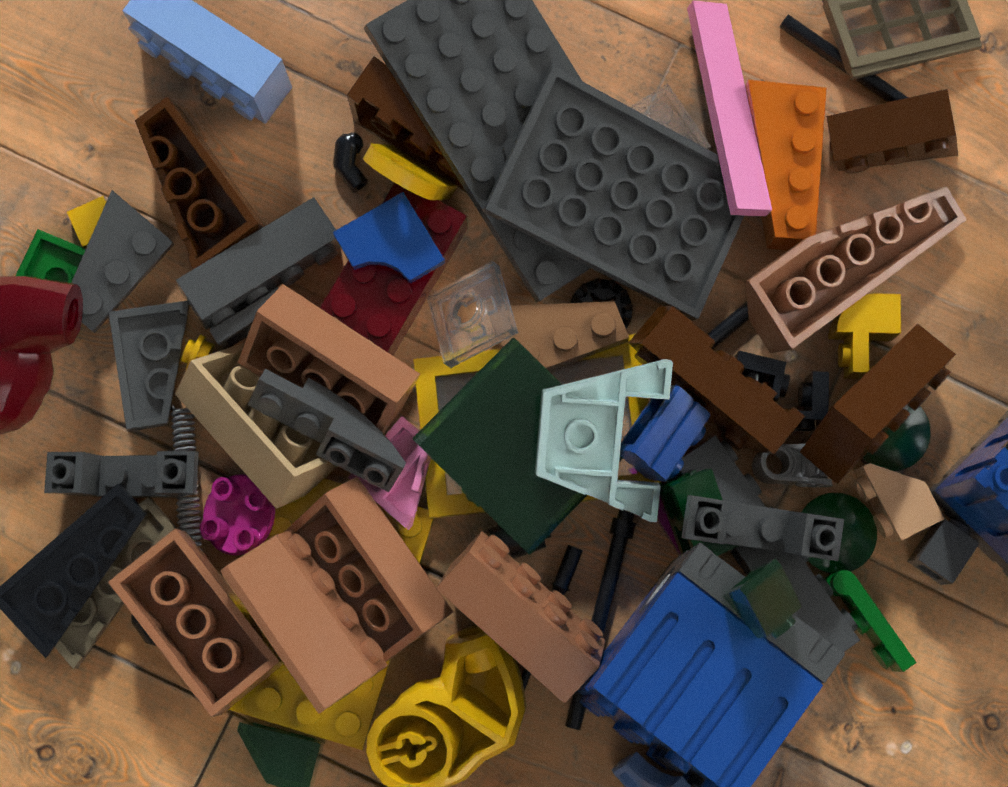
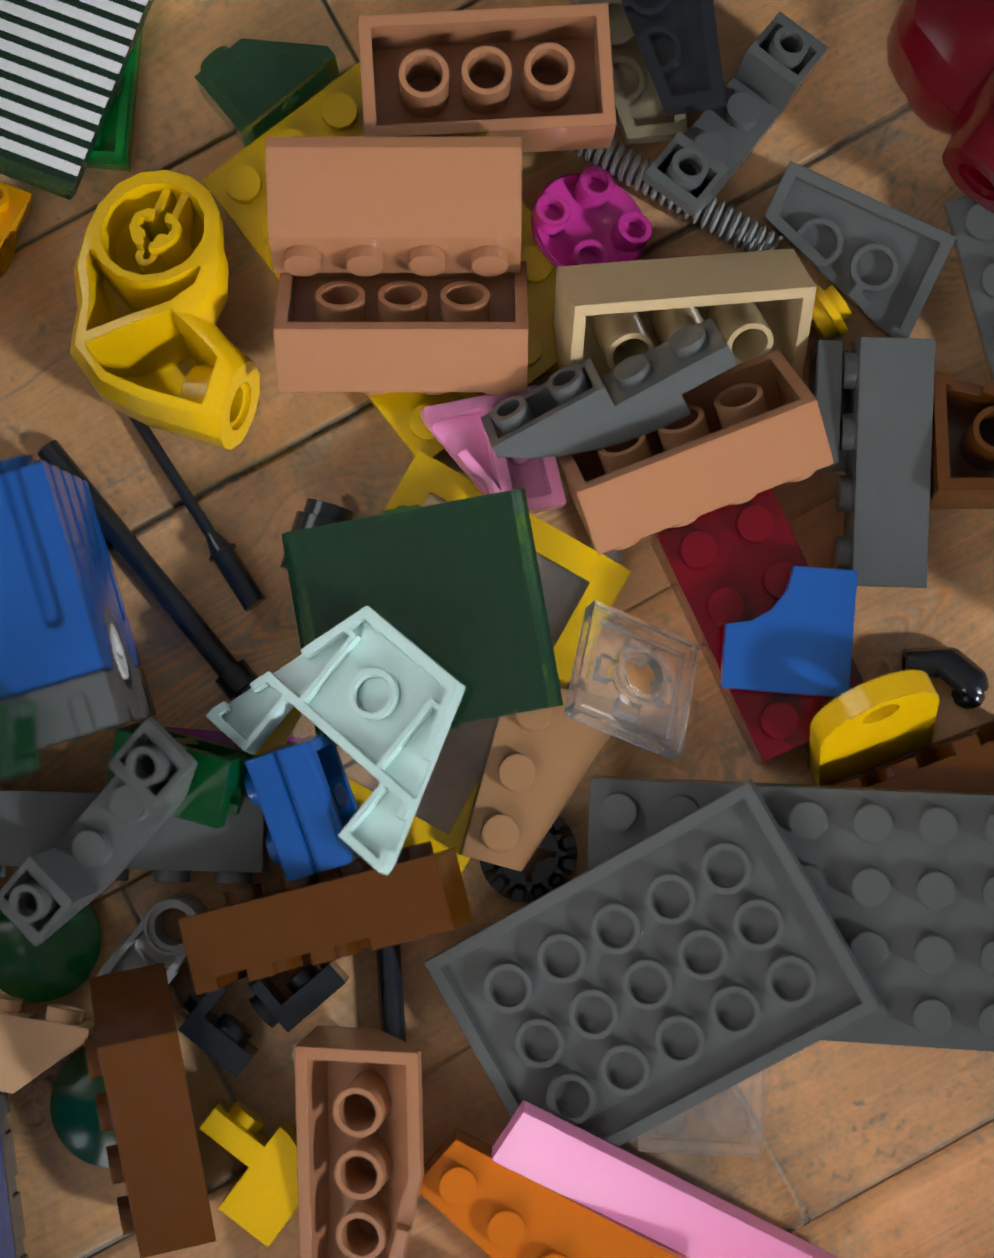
camera: 125 degrees right, 5 degrees up
(523, 615) = (211, 469): nougat brick -> none

